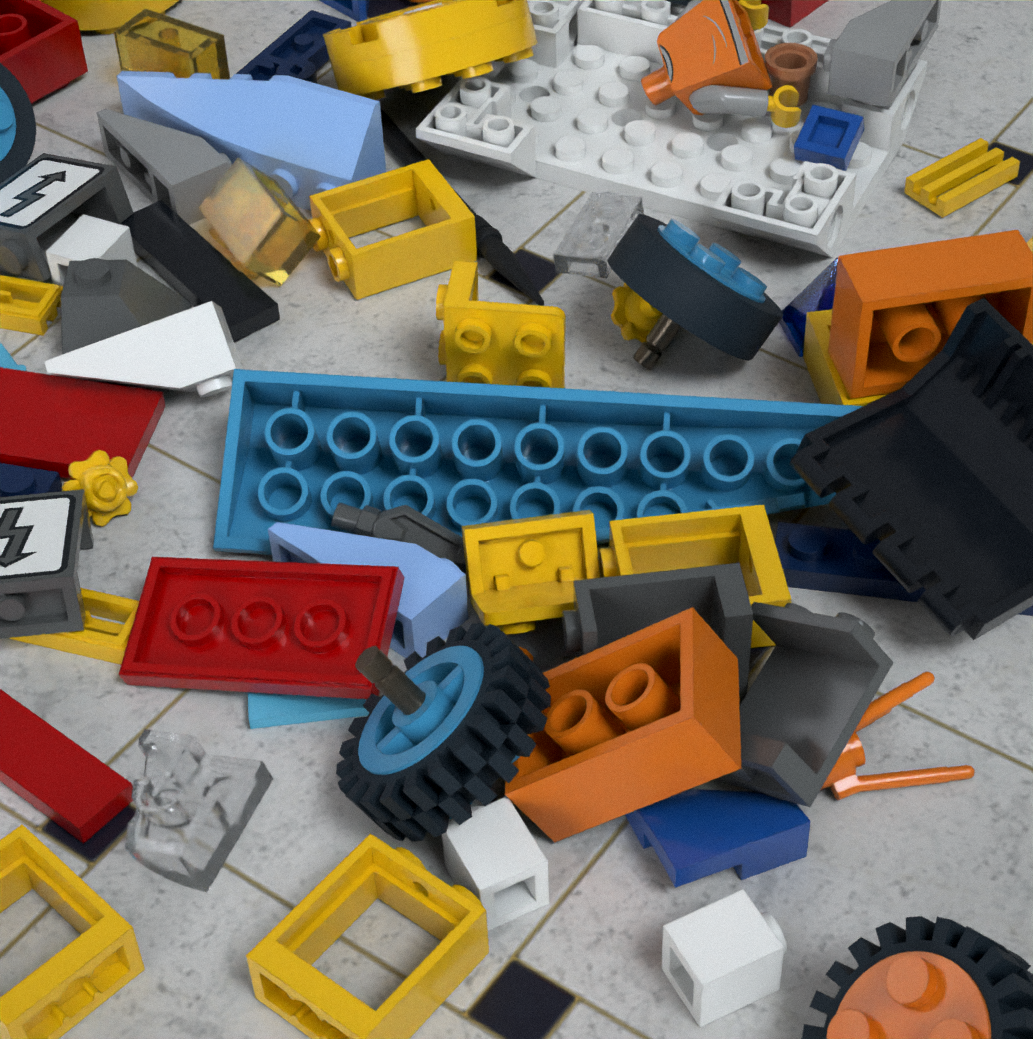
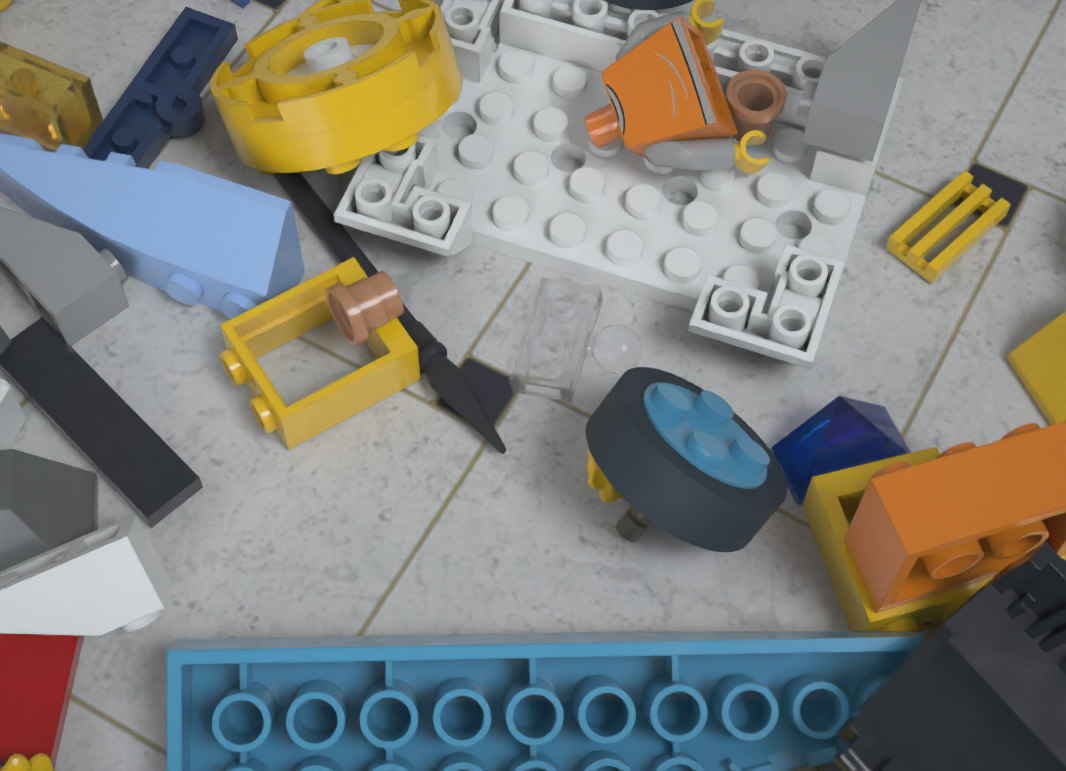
camera: 10 degrees left, 15 degrees up
(258, 224) = (163, 361): clear yellow brick -> none
(431, 180) = (364, 306): none -> nougat piece
(497, 339) = (464, 562): yellow bracket -> none
(829, 137) = (805, 198): blue plate -> none

